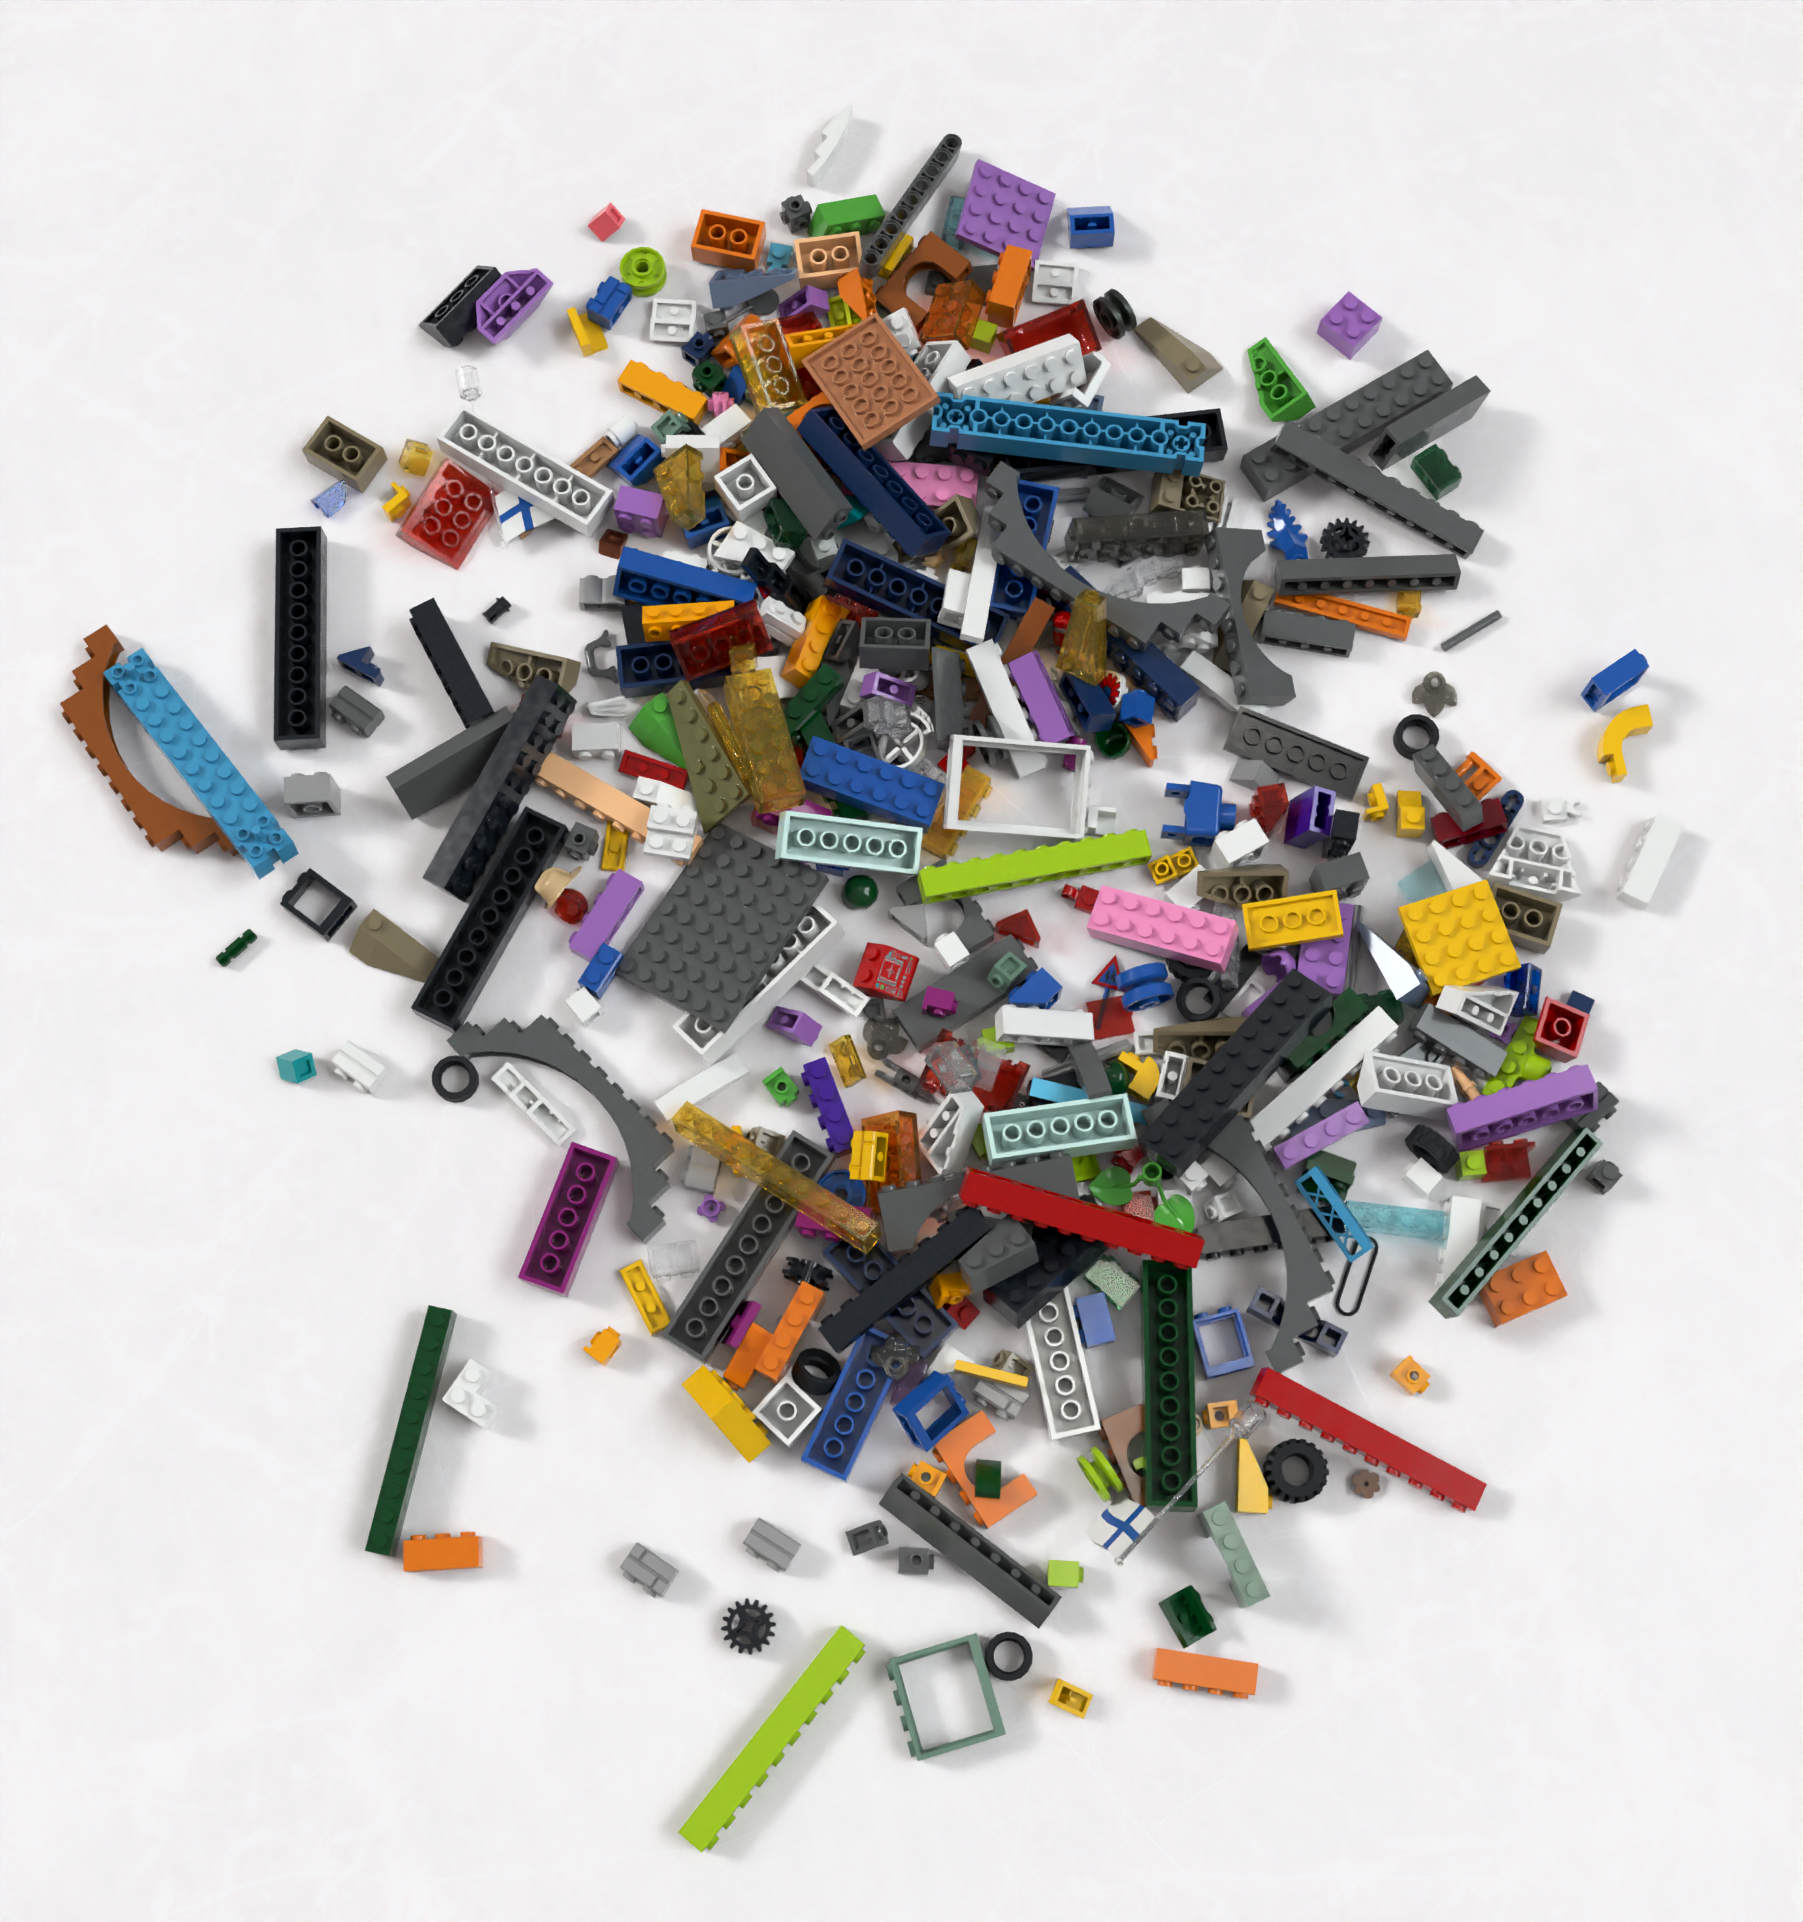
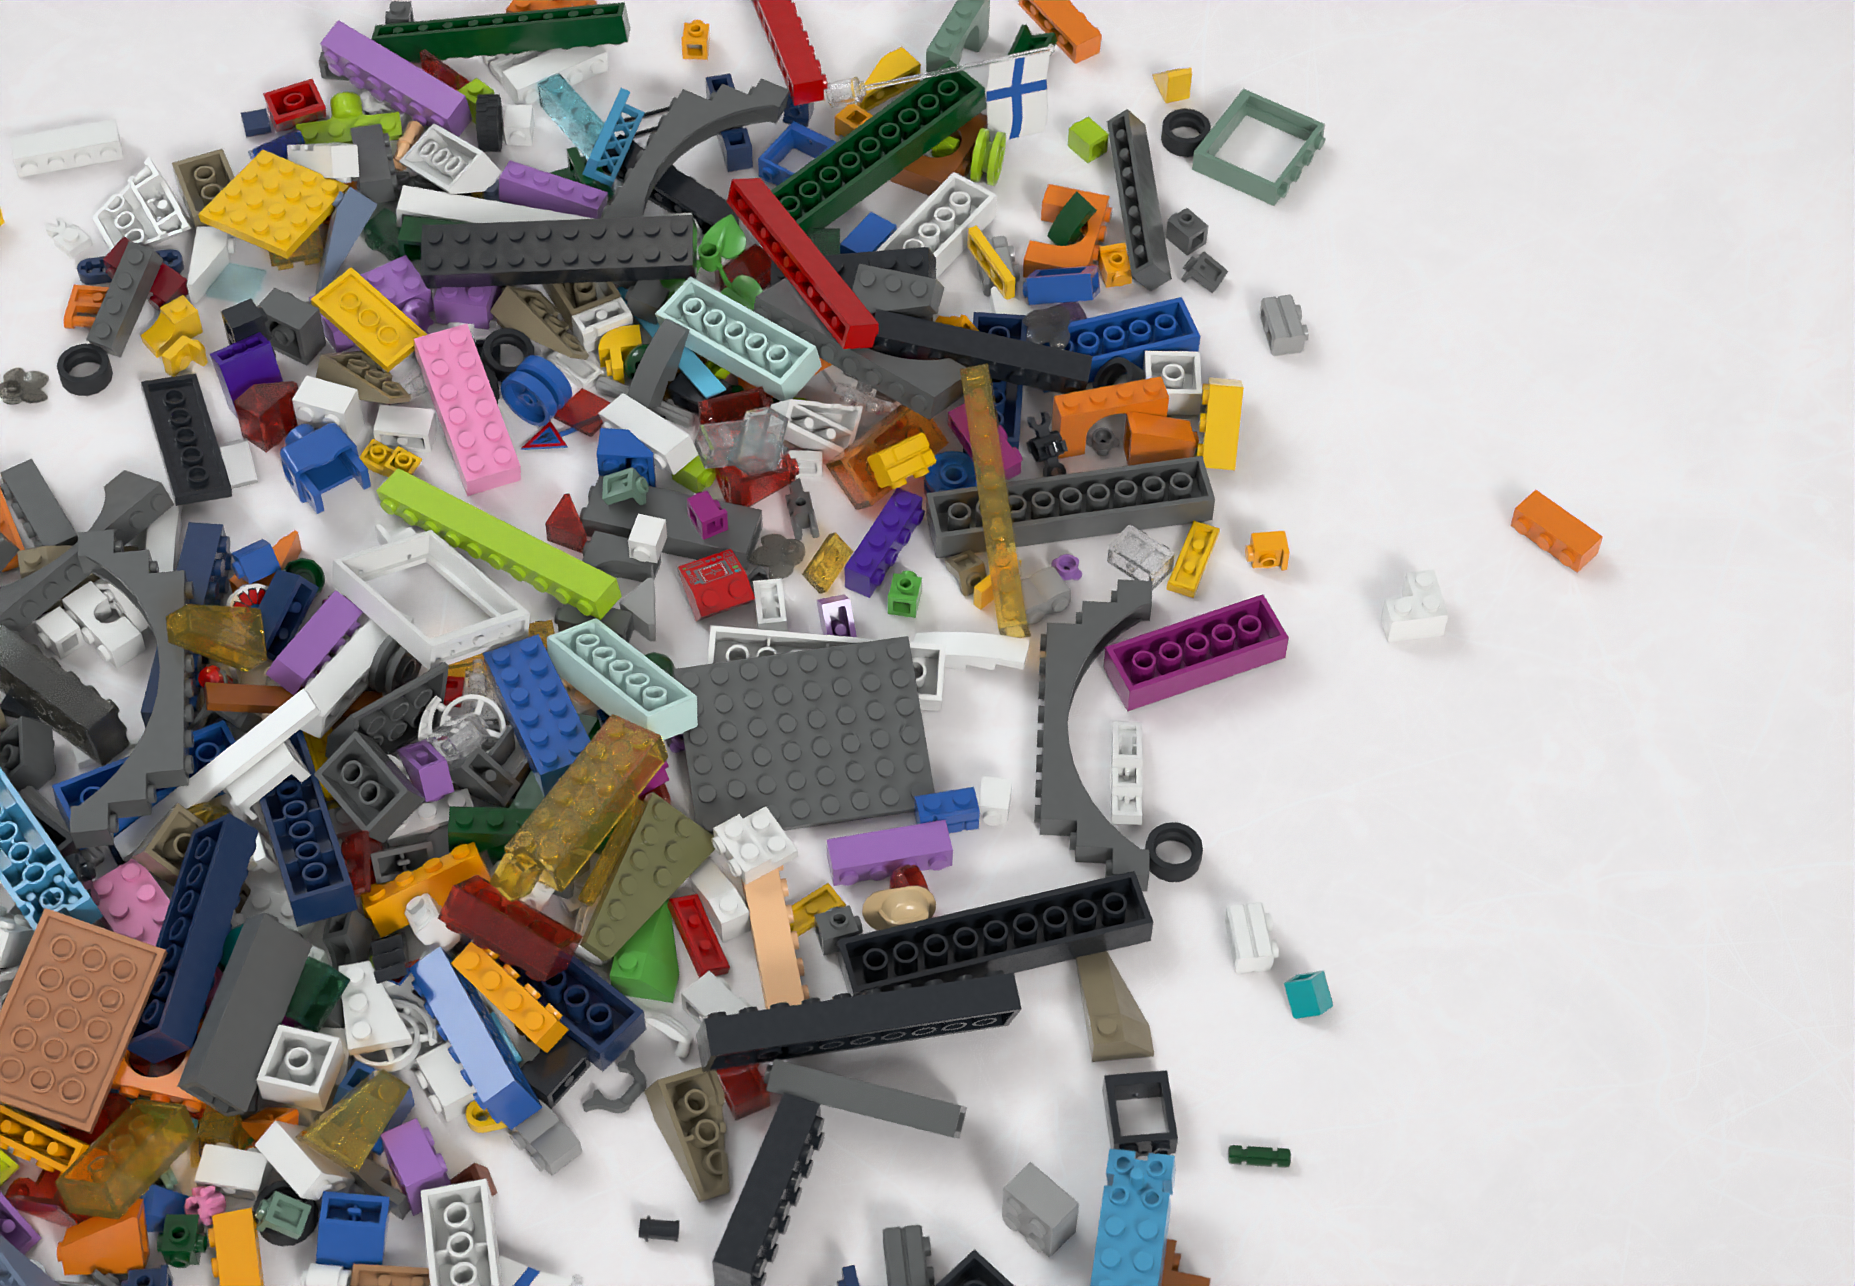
camera: 135 degrees left, 20 degrees down
(411, 1431) = (1493, 630): dark green brick -> none
(649, 1570) = (1397, 387): light grey brick -> none
(740, 1324) = (1140, 449): magenta plate -> none
(743, 1615) = (1358, 296): black gear -> none
(771, 1739) = (1415, 225): lime brick -> none
(1011, 1363) = (967, 276): dark tan bracket -> none
(1084, 899) = (488, 500): red plate -> none
(1146, 572) = (108, 679): clear slope -> none
(1314, 1461) = (848, 51): black tyre -> none
(1372, 1480) = (811, 19): reddish brown plant -> none

